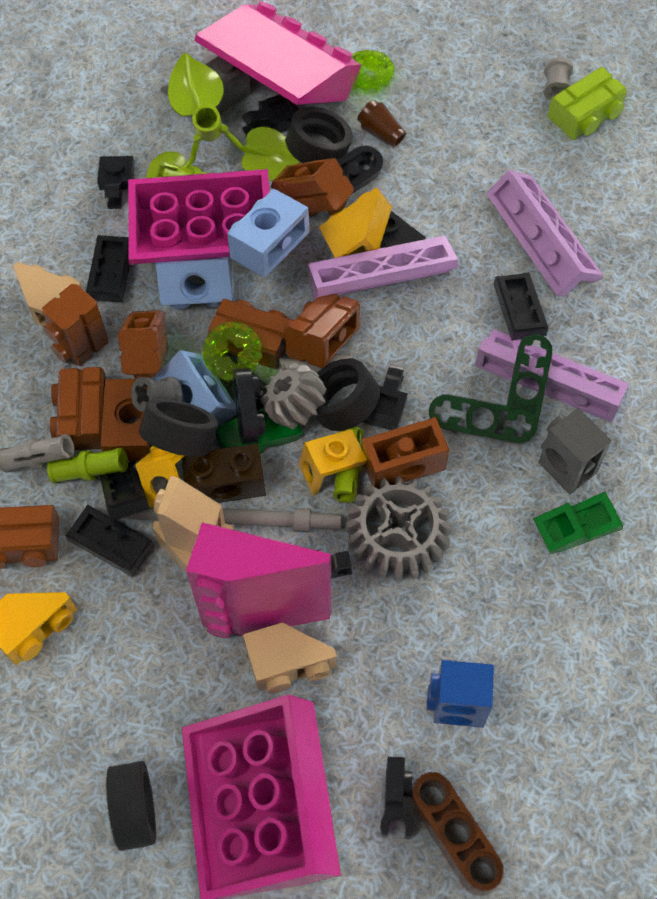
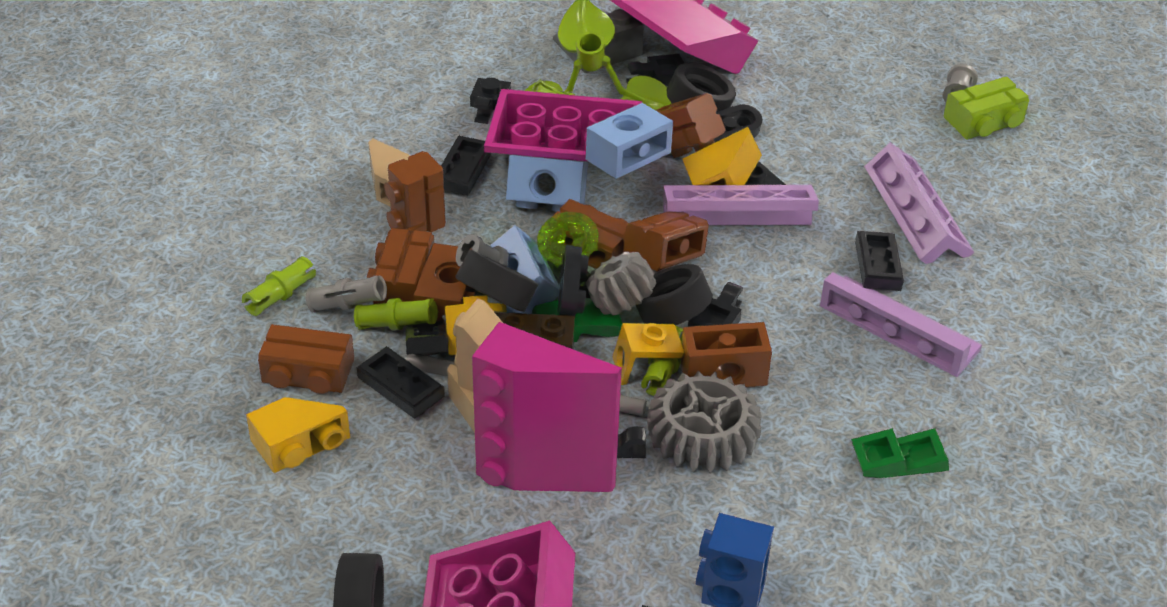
camera: 10 degrees right, 20 degrees down
(143, 343) = (480, 215): dark orange brick -> none
(284, 655) = (564, 502): tan slope -> none
(374, 62) = (777, 50): clear neon green gear -> none
(380, 123) = (767, 93): reddish brown cone -> none
(515, 404) = (853, 335): dark green beam -> none
(573, 450) = (906, 379): dark grey brick -> none

